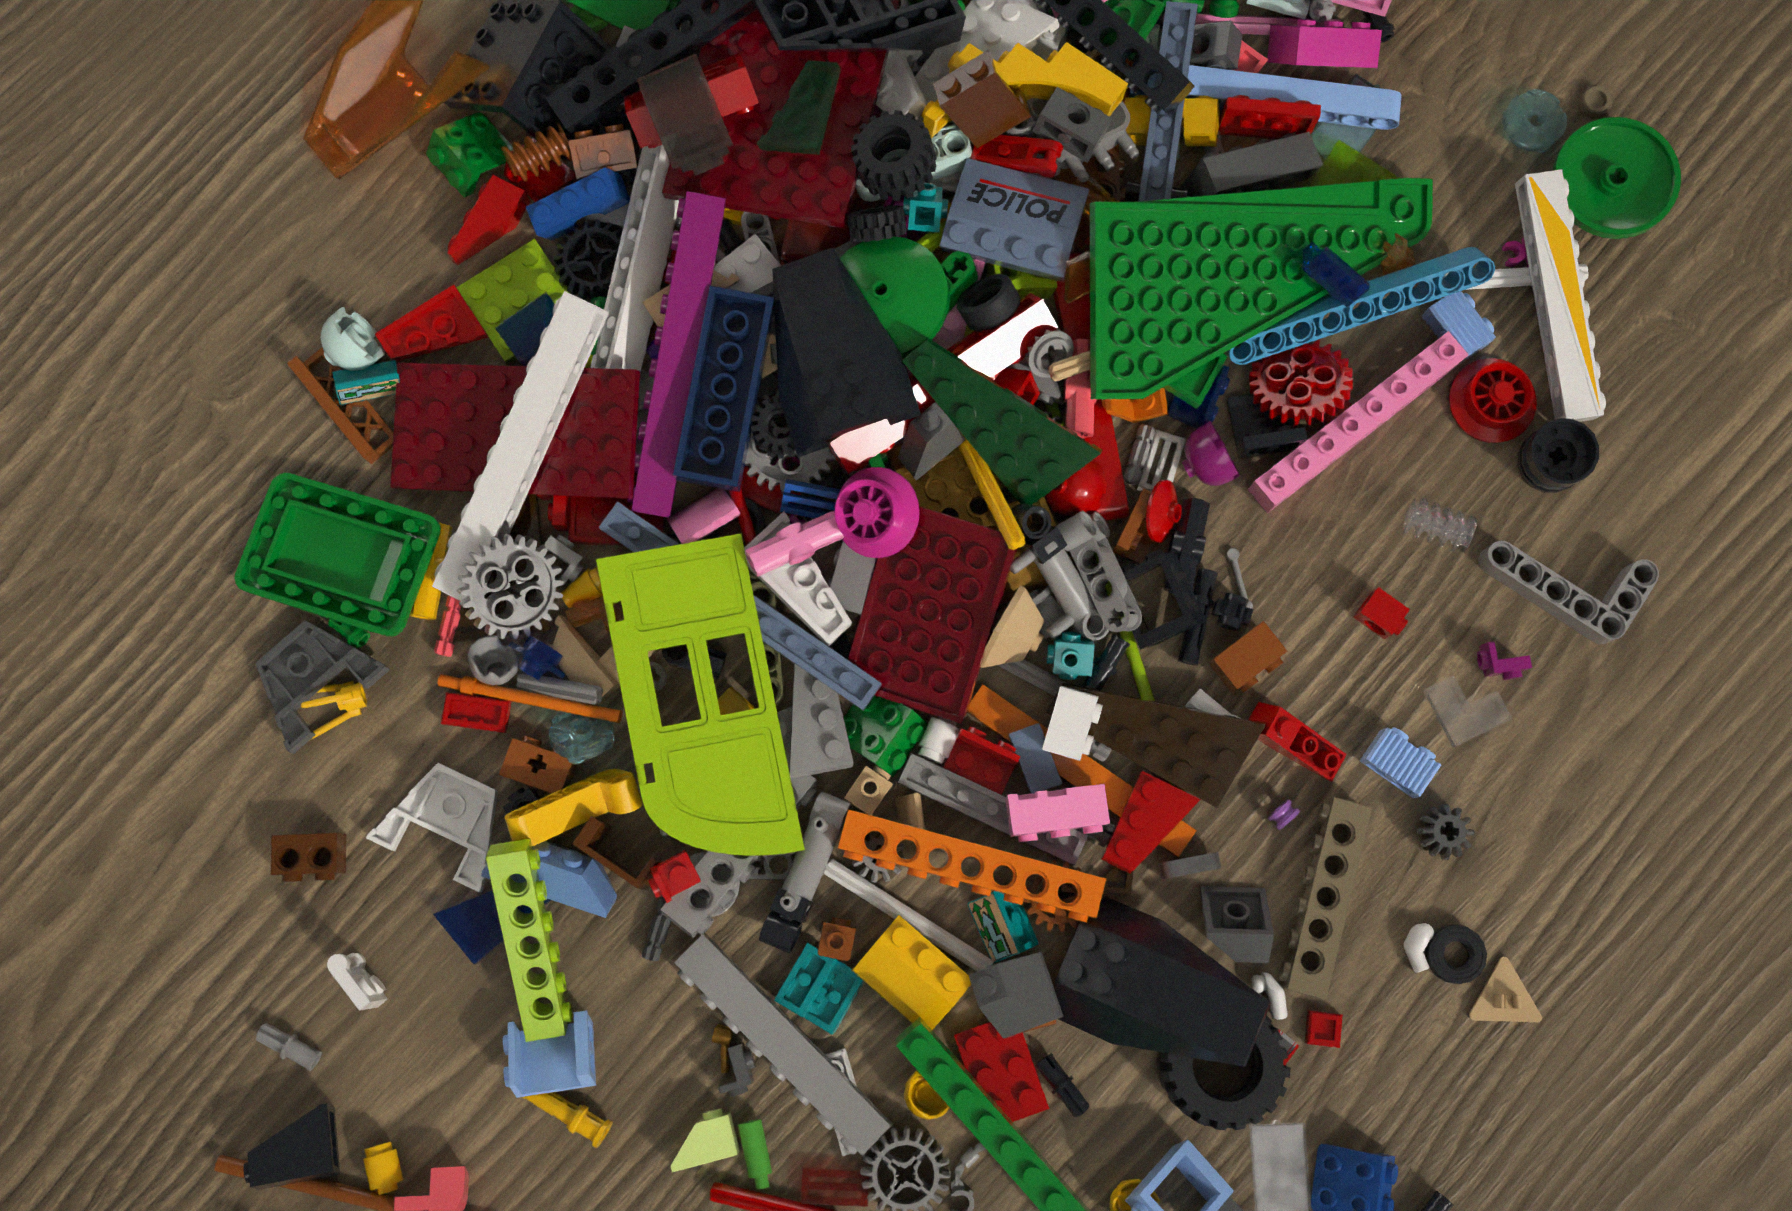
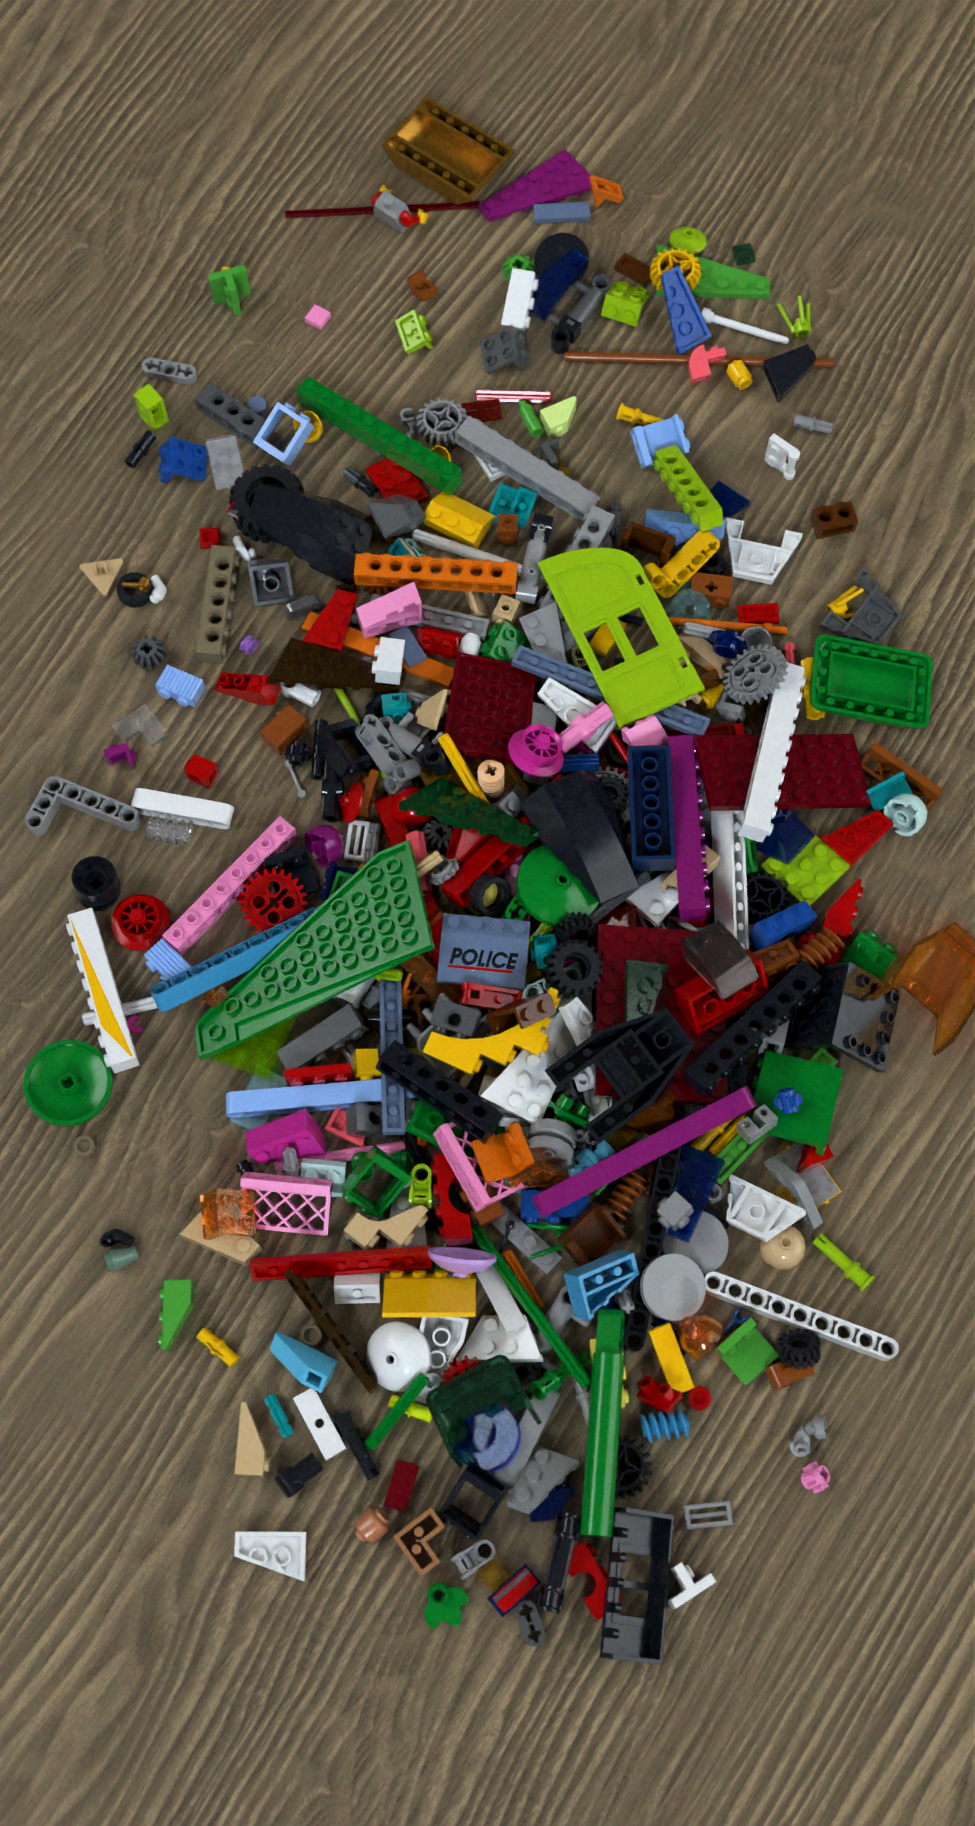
camera: 170 degrees right, 10 degrees down
(673, 876) = (612, 529): red bracket -> none
(957, 466) = (491, 778): none -> light nougat piece
(1333, 274) = (262, 961): clear blue bracket -> none
(1417, 559) = (173, 806): none -> white beam
(1444, 950) = (143, 584): none -> pearl gold hand
(1529, 137) = (134, 1132): clear light blue plate -> none

